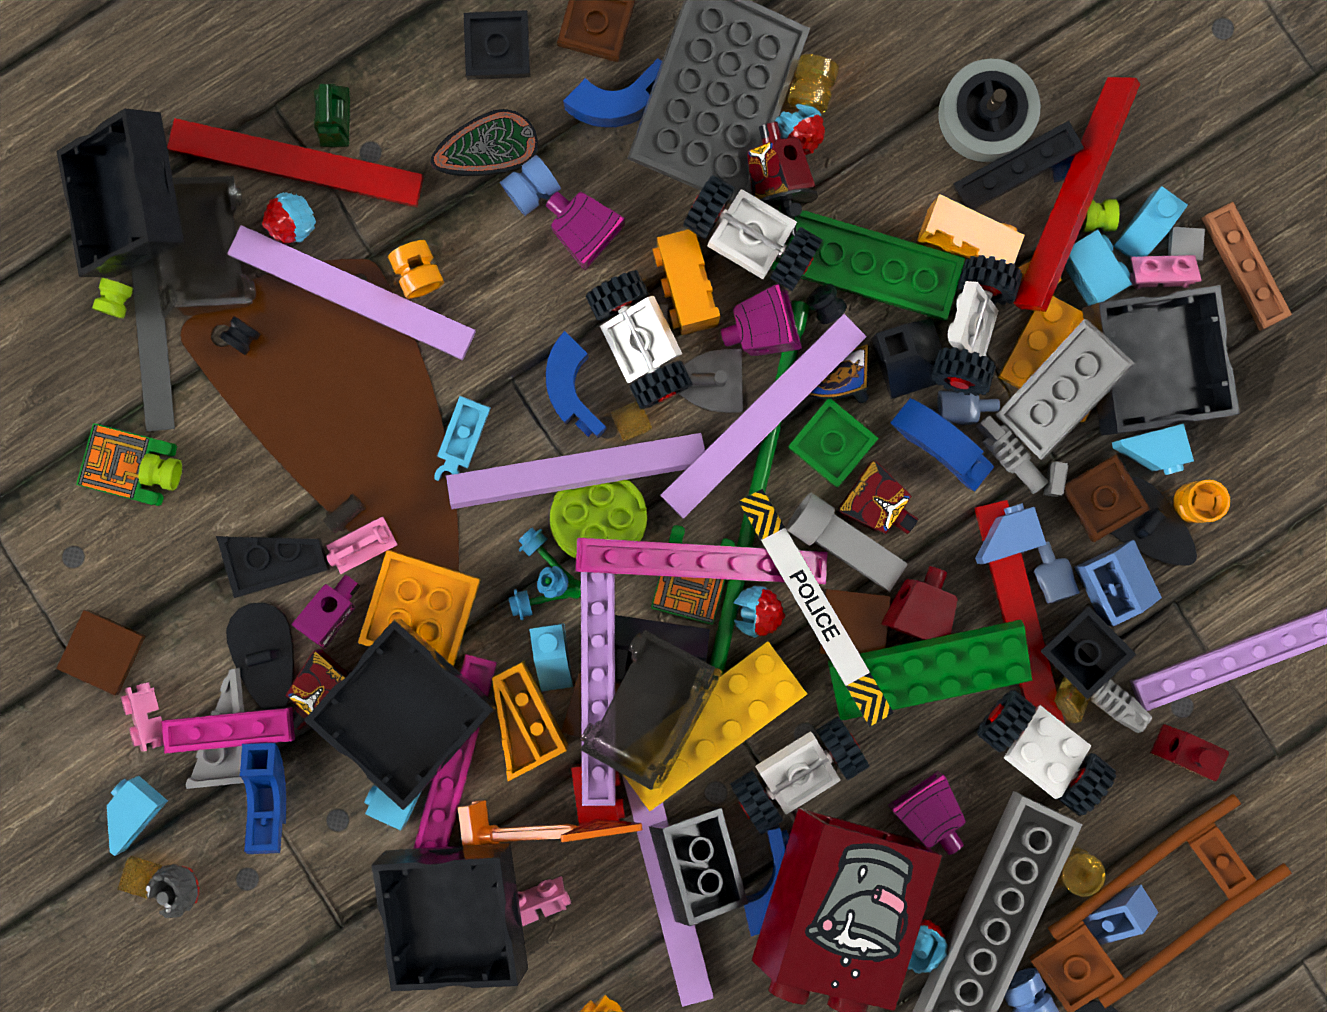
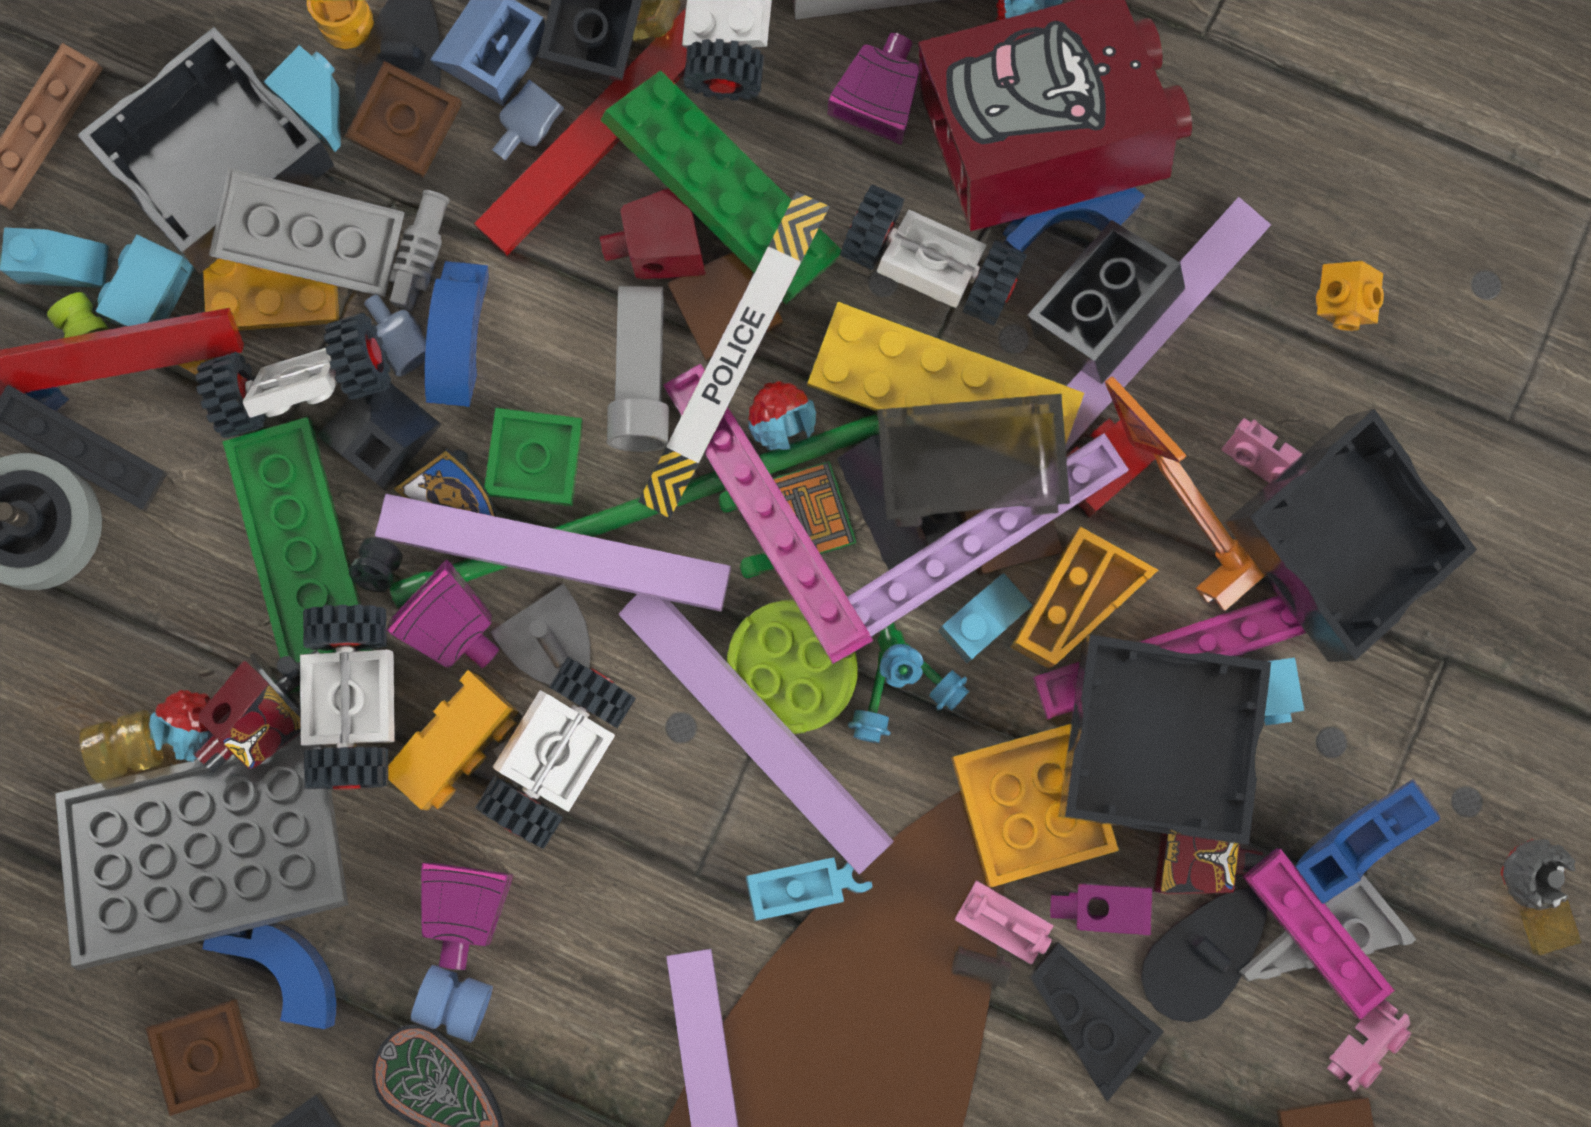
camera: 125 degrees left, 5 degrees down
(131, 811) = (1485, 986): medium azure slope -> none
(420, 279) = (648, 1060): light orange wheel -> none
(561, 375) = (667, 810): blue arch -> none
(631, 421) = (656, 703): clear yellow plate -> none
(878, 502) = (568, 364): torso -> none
(967, 233) = (191, 456): wedge -> none
(1011, 534) = (511, 191): medium blue slope -> none
(1057, 479) = (413, 182): light grey tile -> none
(1169, 270) = (98, 210): bright pink hinge -> none
(1186, 242) = (52, 206): light grey tile -> none

